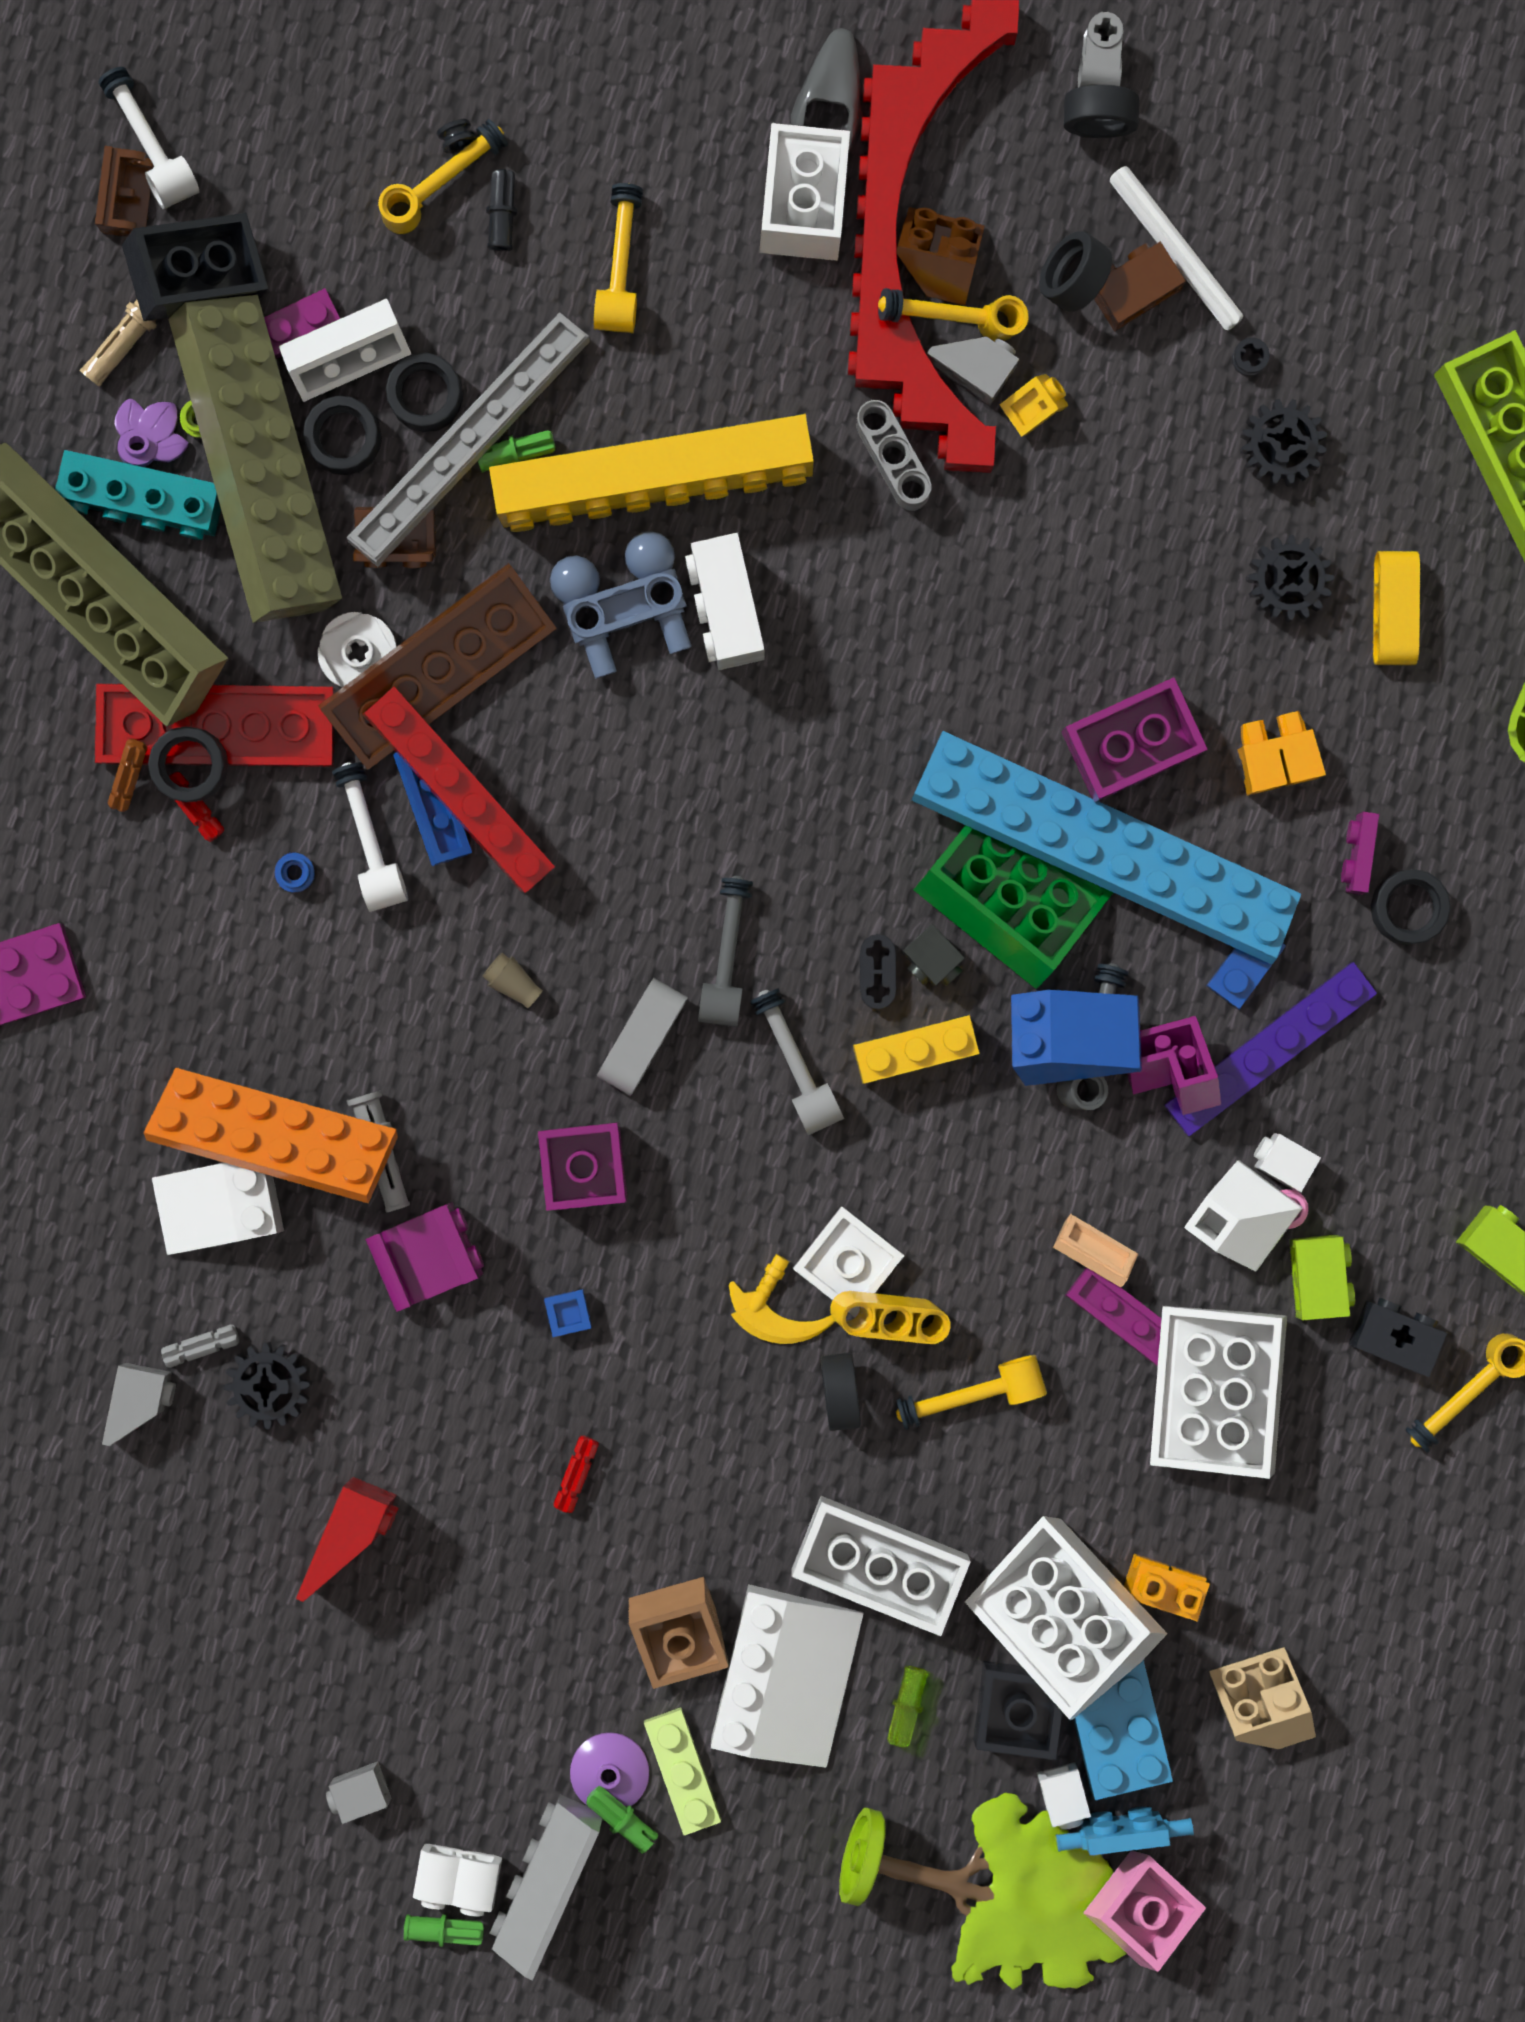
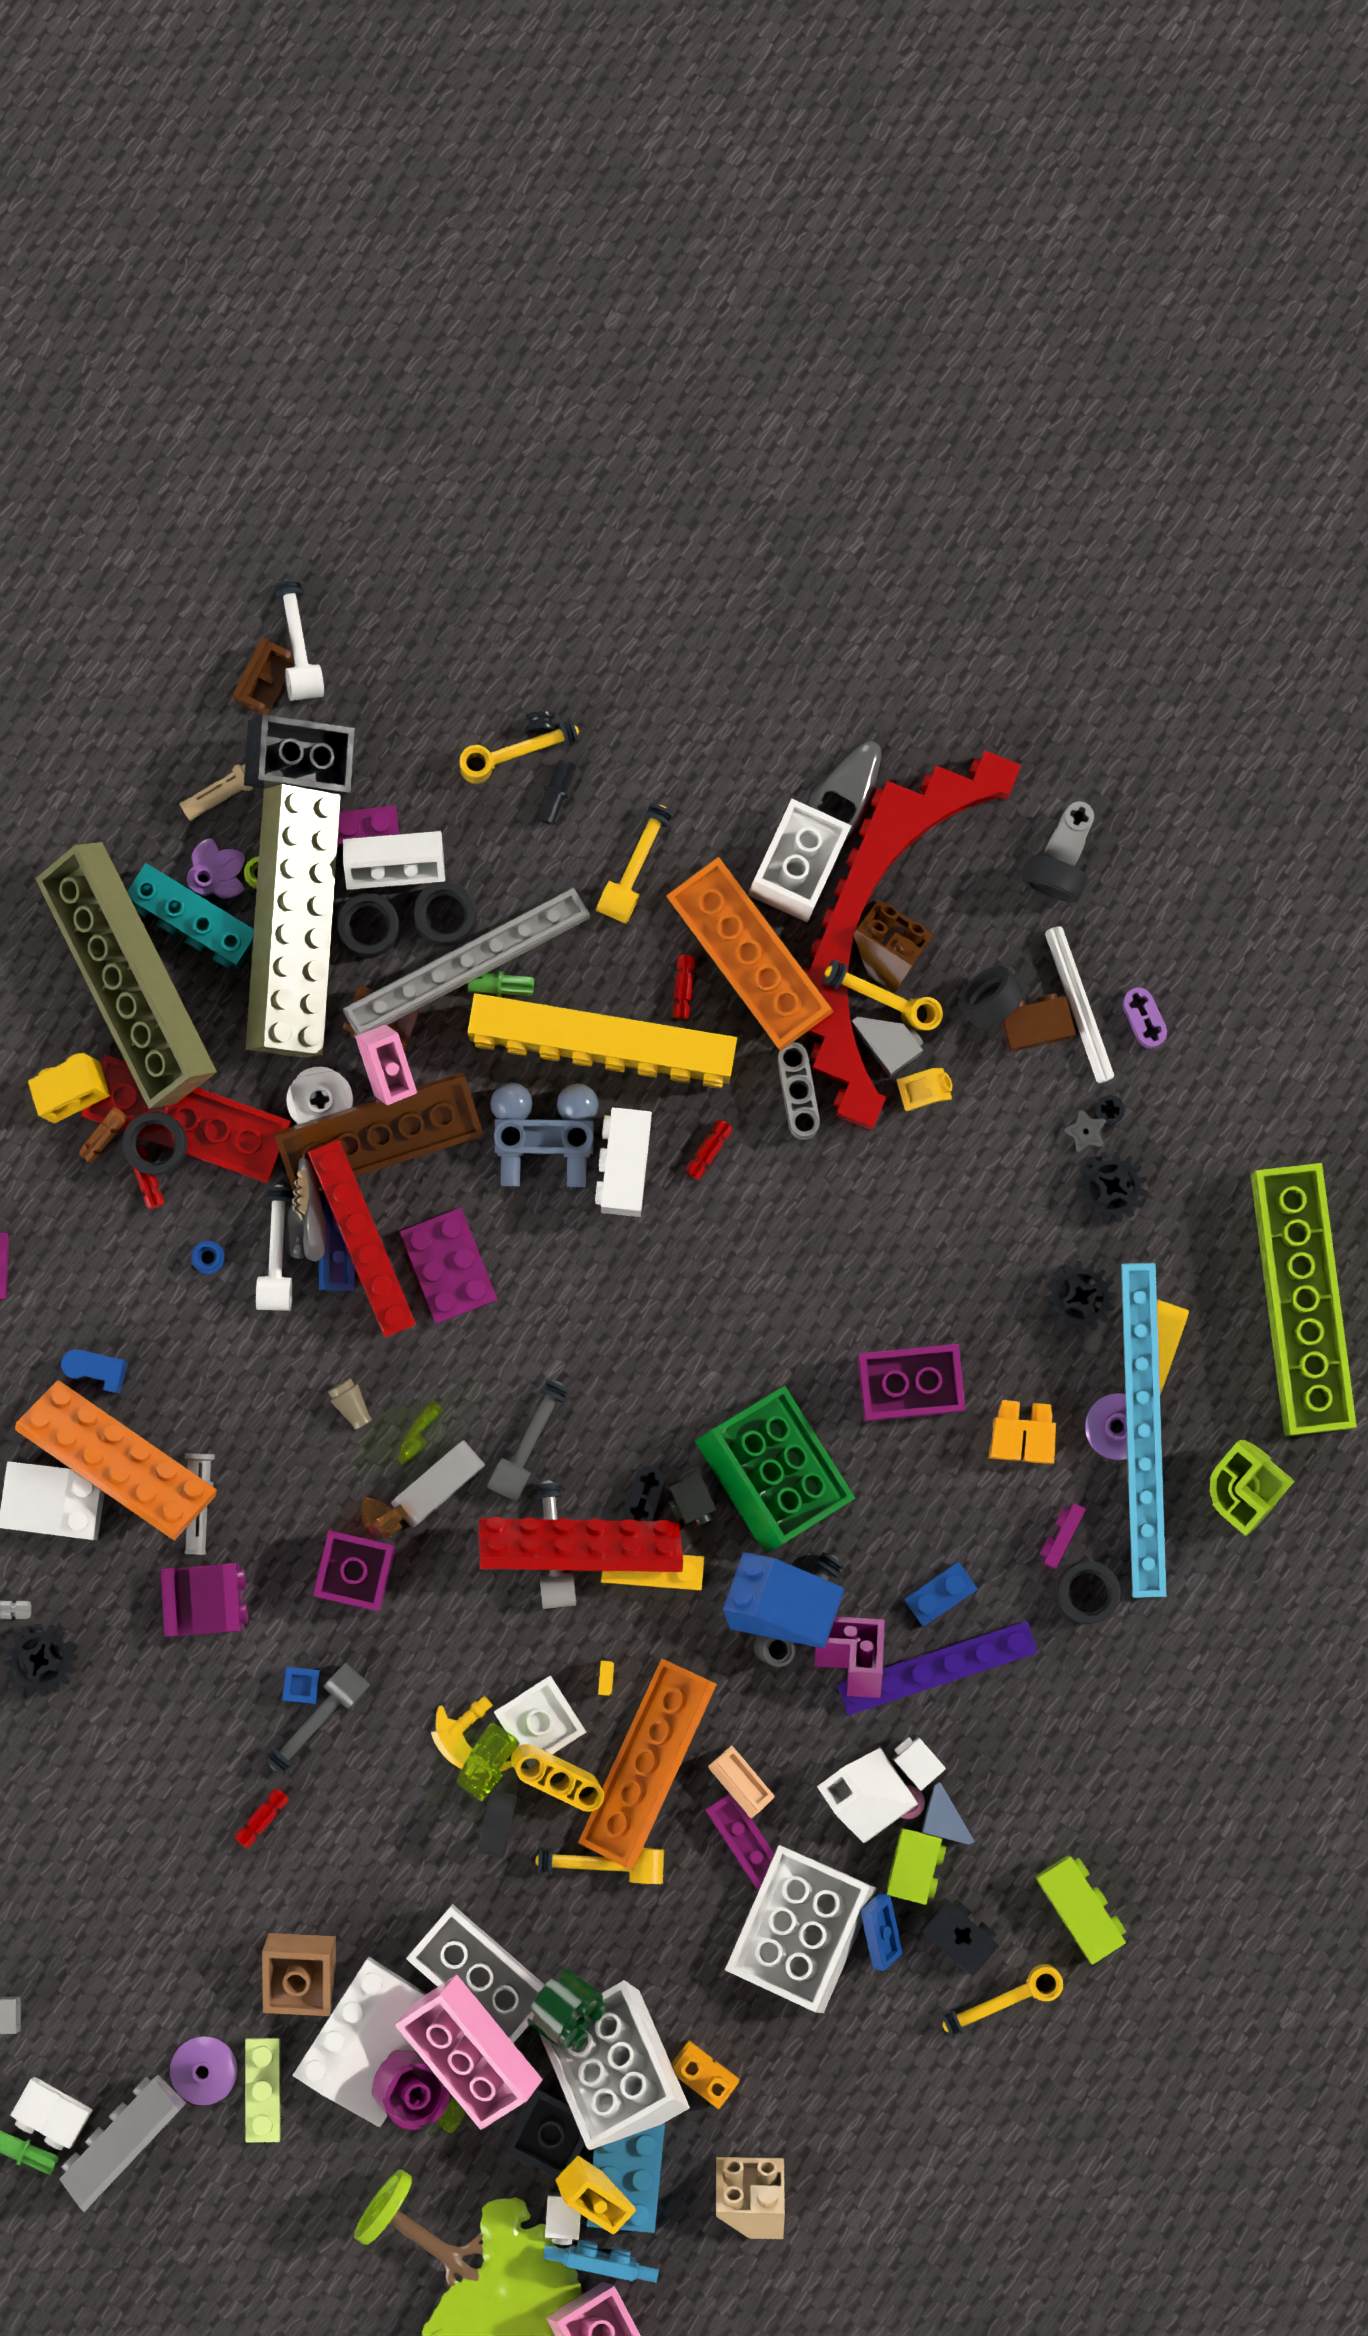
camera: 10 degrees right, 5 degrees down
(68, 735) = (68, 1087): none -> yellow brick
(197, 1041) = (84, 1364): none -> blue leg
(355, 1522) = (73, 1793): red slope -> none
(388, 788) = (306, 1219): none -> dark grey animal
(417, 583) = (386, 1064): none -> bright pink brick
(568, 788) = (448, 1265): none -> magenta plate
(591, 1098) = (380, 1519): none -> clear orange plate
(599, 998) = (414, 1440): none -> clear neon green slope
(618, 1301) = (344, 1688): none -> dark grey piece
(621, 1819) = (200, 2111): bright green axle -> none
(722, 382) = (683, 987): none -> red axle
(785, 316) = (749, 954): none -> orange plate
(804, 1319) = (483, 1763): none -> clear neon green slope
(814, 556) = (708, 1149): none -> red axle
(826, 1050) = (580, 1545): none -> red plate
(847, 1717) = (409, 2090): none -> magenta brick
(899, 1656) = (468, 2052): none -> bright pink brick
(905, 1187) = (606, 1678): none -> yellow tile
(985, 1266) = (647, 1763): none -> orange plate
(991, 1573) = (566, 2010): none -> dark green brick
(1093, 1766) = (594, 2195): none -> yellow slope
(1107, 847) = (861, 1461): dark azure plate -> none
(1233, 400) = (1094, 1127): none -> dark grey plate
(1262, 231) = (1137, 1021): none -> medium lavender beam
(1310, 1363) = (881, 1932): none -> blue plate
(1334, 1213) = (943, 1819): none -> sand blue slope
(1401, 707) = (1098, 1426): none -> medium lavender dish
(1413, 701) = (1143, 1430): none -> medium azure plate

